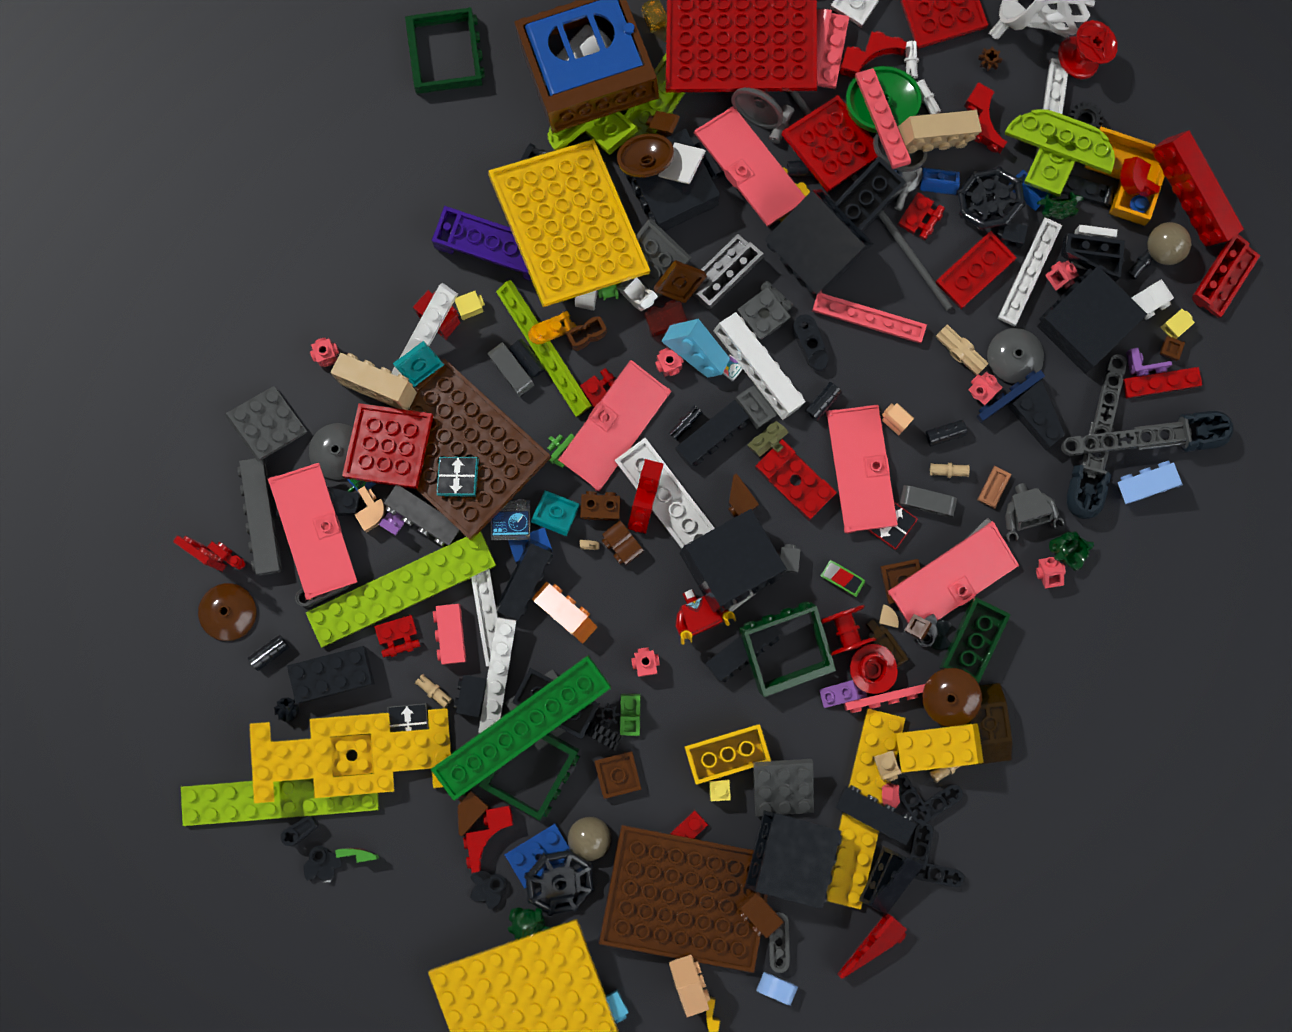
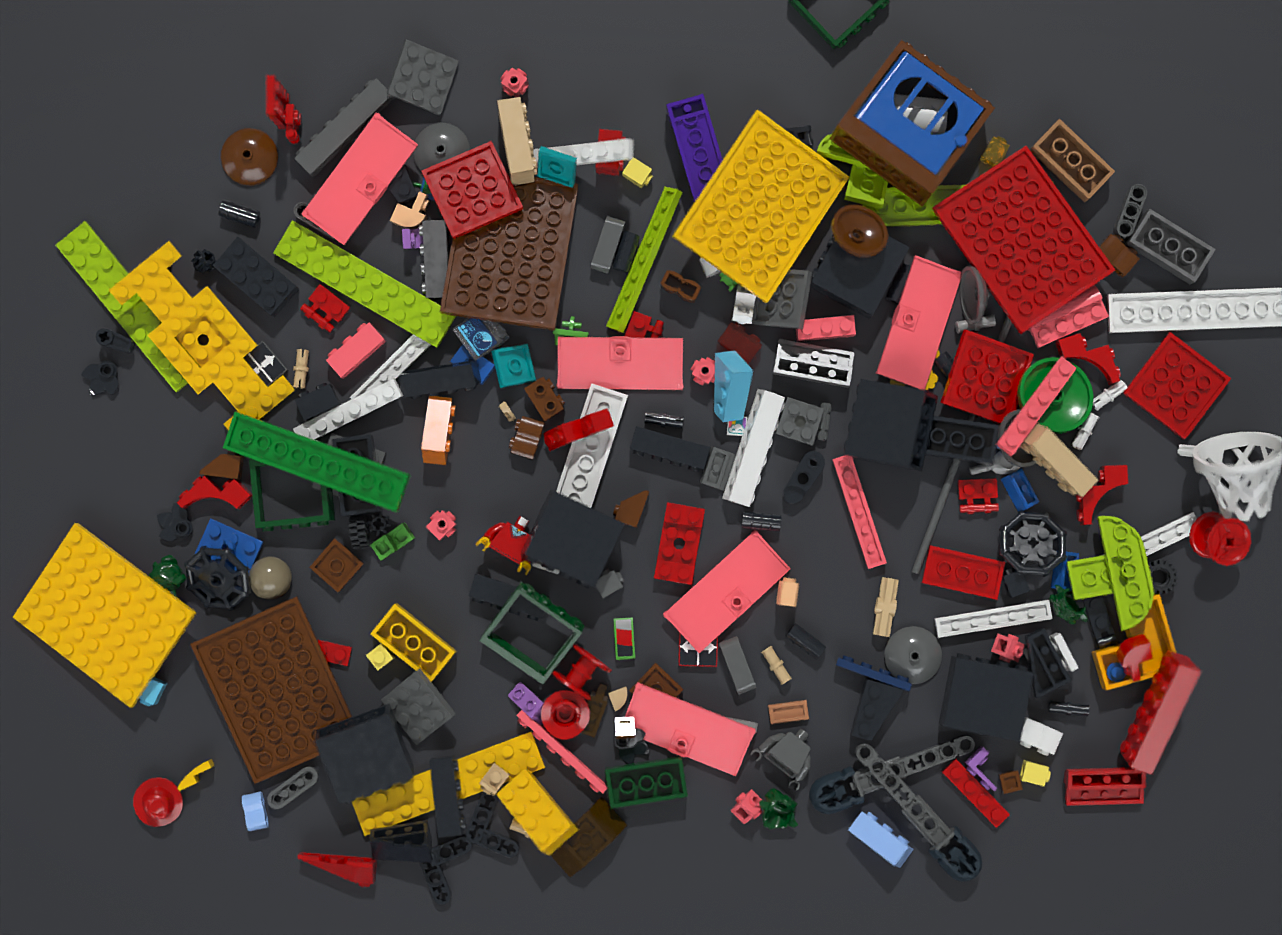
camera: 60 degrees right, 5 degrees up
(361, 854) = (131, 403): bright green slope -> none
(457, 476) = (485, 265): black tile -> none
(551, 328) = (664, 254): light orange plate -> none
(662, 123) = (900, 224): reddish brown slope -> none
(680, 281) = (776, 333): reddish brown plate -> none
(684, 163) = (877, 267): white piece -> none
(690, 985) = (207, 739): light nougat brick -> none
(704, 239) = (827, 328): none -> coral brick
(760, 914) = (302, 757): reddish brown brick -> none
(768, 439) = (697, 498): olive plate -> none
(890, 795) = (472, 798): coral piece -> none
(960, 685) = (597, 798): reddish brown dish -> none
(984, 388) = (865, 647): coral brick -> none
(993, 54) = (1151, 458): reddish brown gear -> none
(1169, 243) = (1098, 719): dark tan piece -> none

